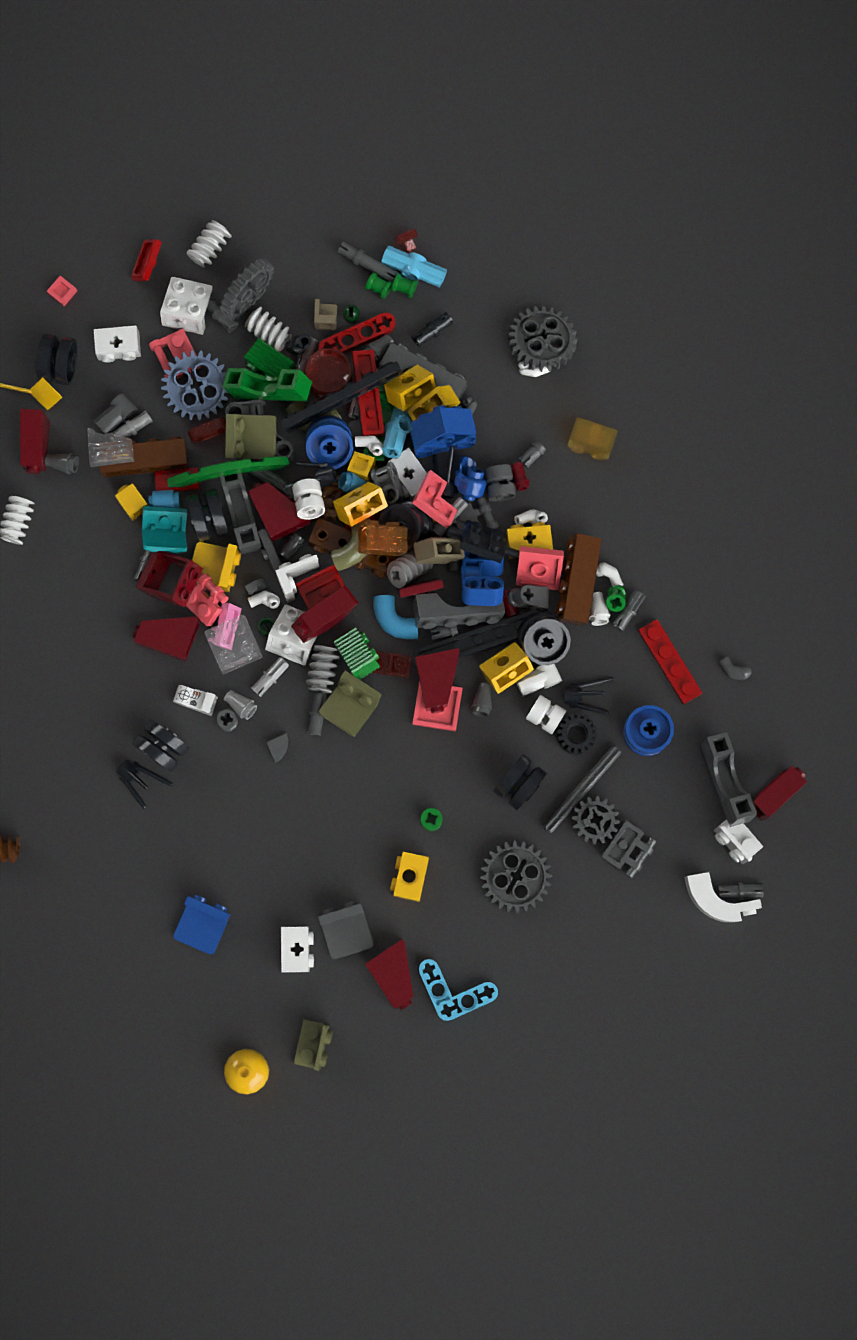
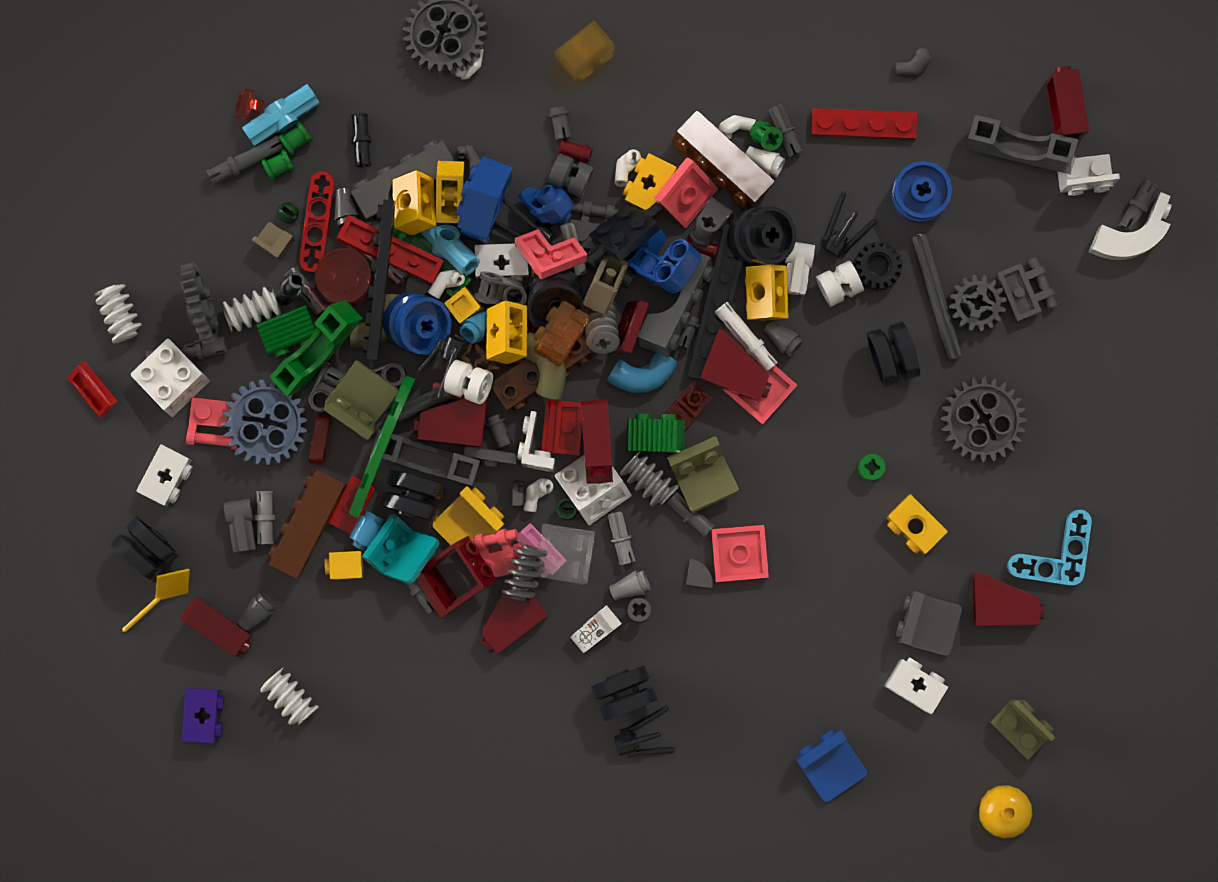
camera: 55 degrees left, 5 degrees up
(62, 291) = (67, 498): coral tile -> none
(109, 449) = (279, 554): clear wing -> none
(200, 622) = (525, 572): none -> dark grey piece
(311, 765) = (739, 553): none -> coral plate
(463, 678) = (752, 345): none -> white pin

